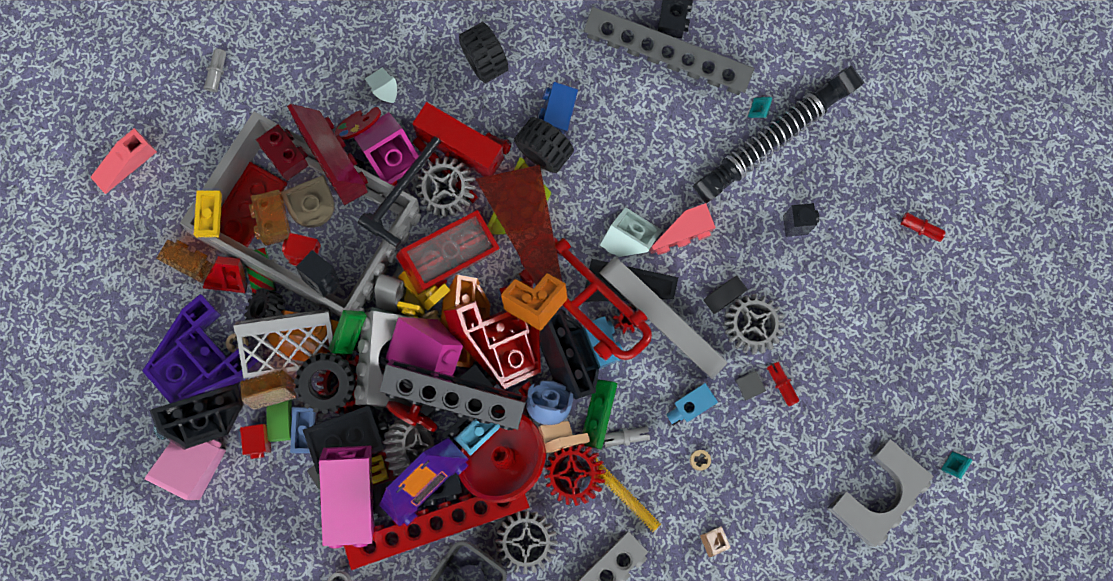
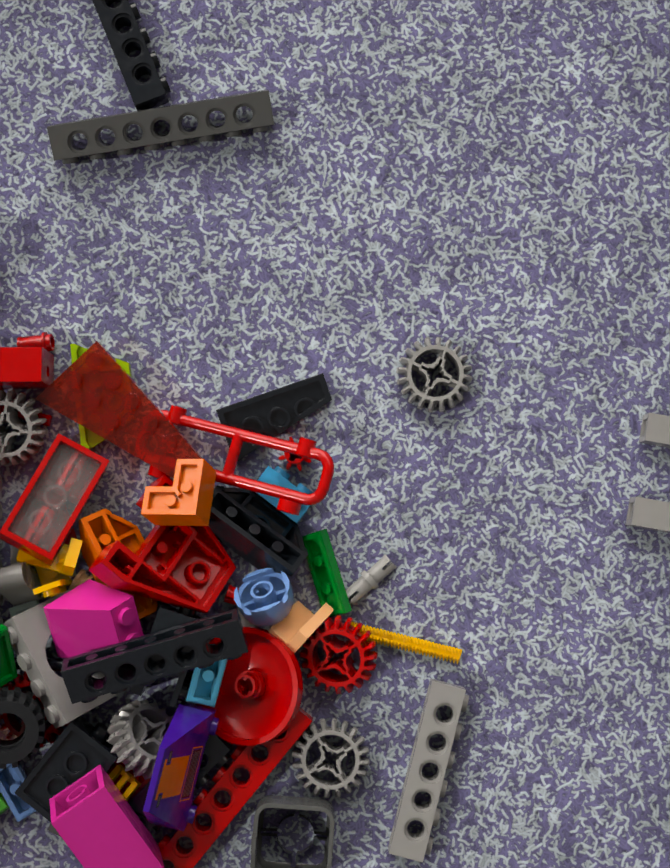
camera: 30 degrees left, 5 degrees up
(411, 415) = (123, 704): red piece -> none
(544, 144) = (87, 315): black tyre -> none
(558, 105) = (78, 264): blue brick -> none
(630, 235) = (243, 357): light aqua slope -> none
(663, 317) = (332, 427): light grey beam -> none
(690, 225) = (300, 309): coral slope -> none
(700, 397) = (425, 491): dark azure torso -> none
(703, 466) = (455, 551): tan bush -> none
(715, 541) = (529, 633): medium nougat tile -> none
(725, 294) = (384, 362): black tyre -> none
(750, 385) = (469, 443): dark grey tile -> none
(760, 107) = (301, 129): teal slope -> none
(783, 384) = (503, 421): red axle -> none
(800, 219) = (417, 230): black brick -> none
(813, 105) = (357, 94): black piece -> none
(922, 227) = (552, 158): red axle -> none

